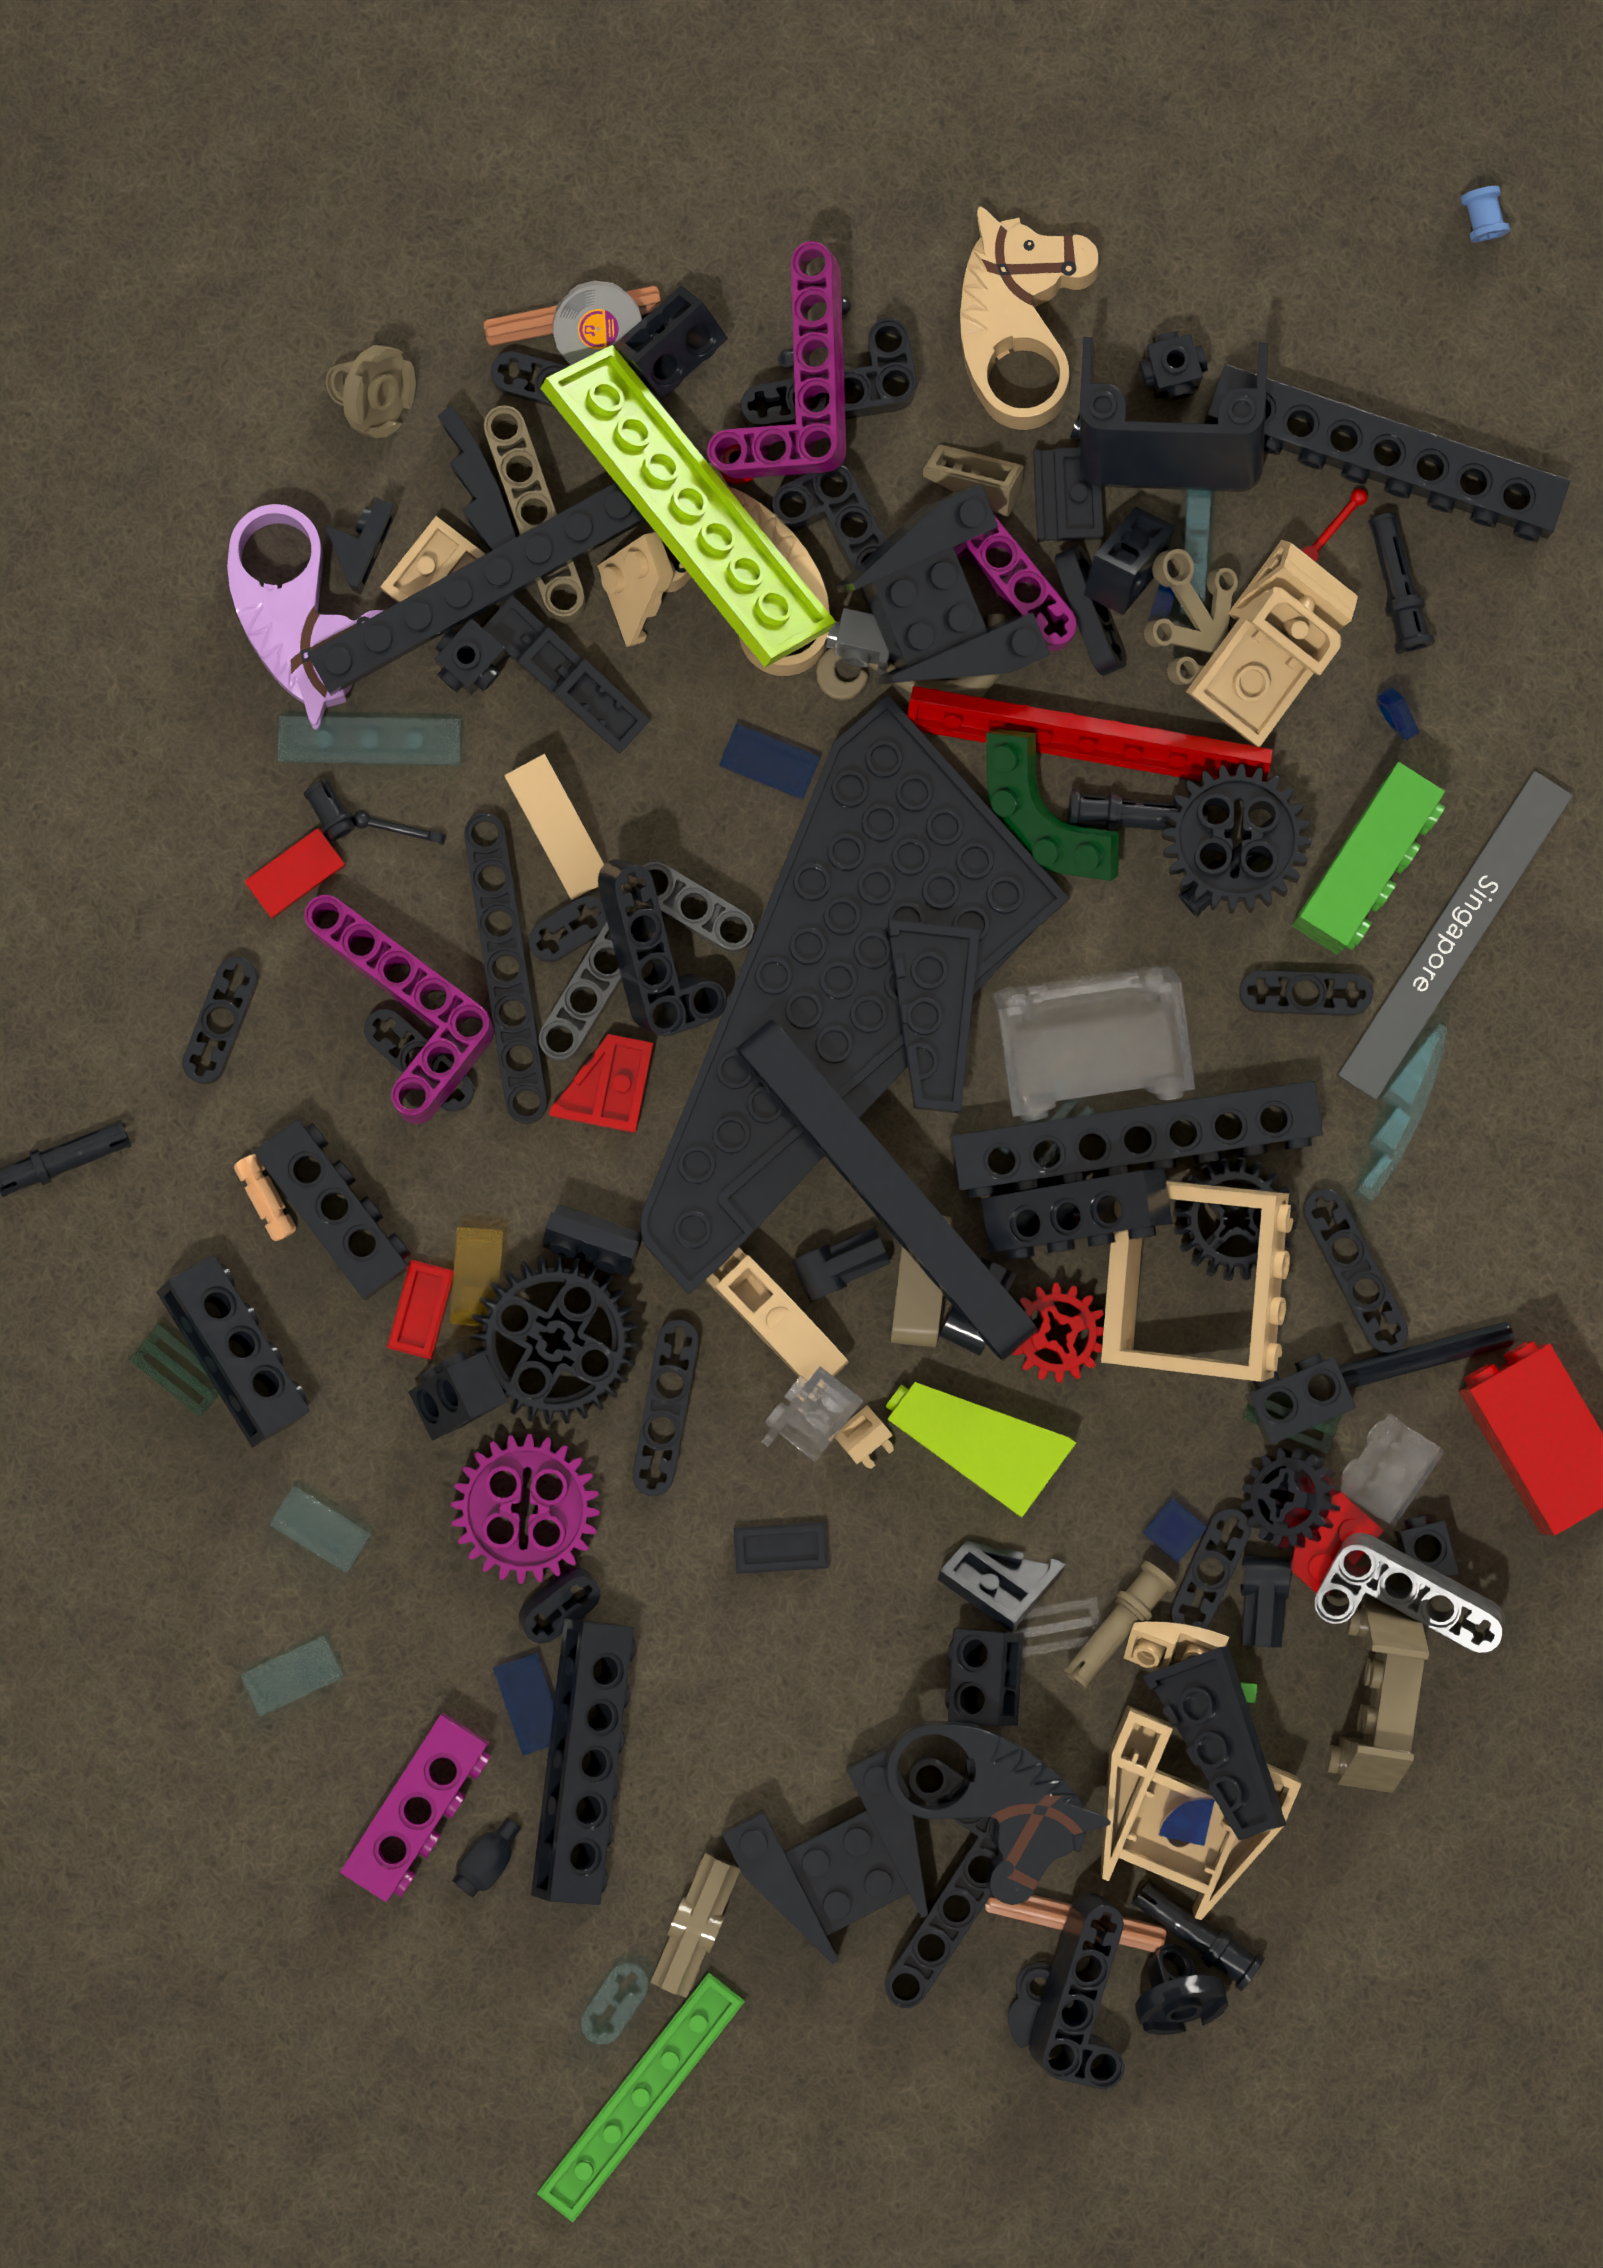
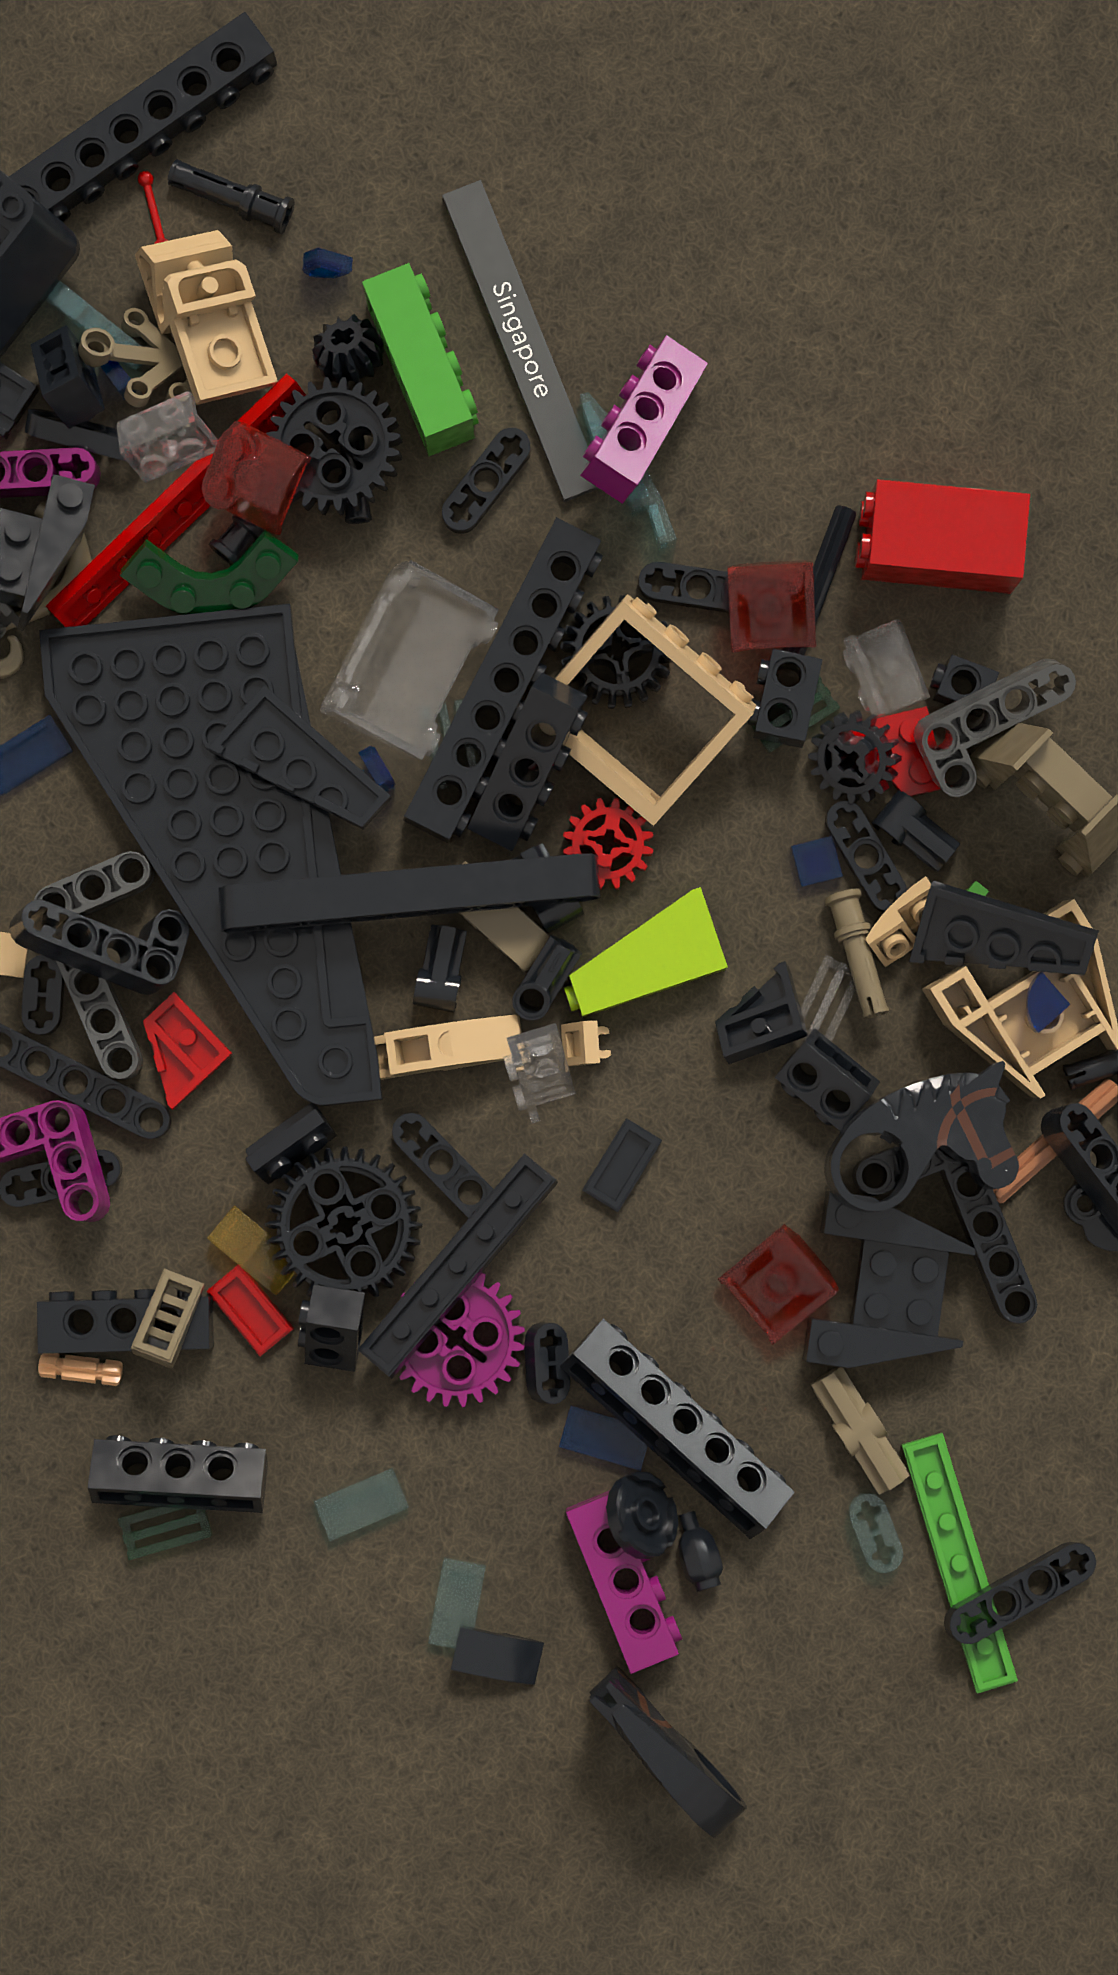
camera: 55 degrees left, 0 degrees up
(272, 1743) = (497, 1655): none -> black slope
(292, 1955) = (667, 1754): none -> black animal
(322, 1238) = (153, 1313): none -> dark tan slope
(484, 1784) = (642, 1515): none -> black tile
(589, 1466) = (457, 1266): none -> black tile
(656, 2162) = (1022, 1598): none -> black beam
(776, 1762) = (780, 1282): none -> clear red slope
(900, 1362) = (547, 976): none -> black piece
(977, 1081) = (377, 768): none -> clear blue tile
(1137, 684) = (165, 437): none -> clear bracket
(1158, 788) = (253, 476): none -> clear red slope
(1333, 788) = (348, 349): none -> black gear
(1373, 1327) = (771, 605): none -> clear red slope
(1521, 1097) = (621, 470): none -> brick

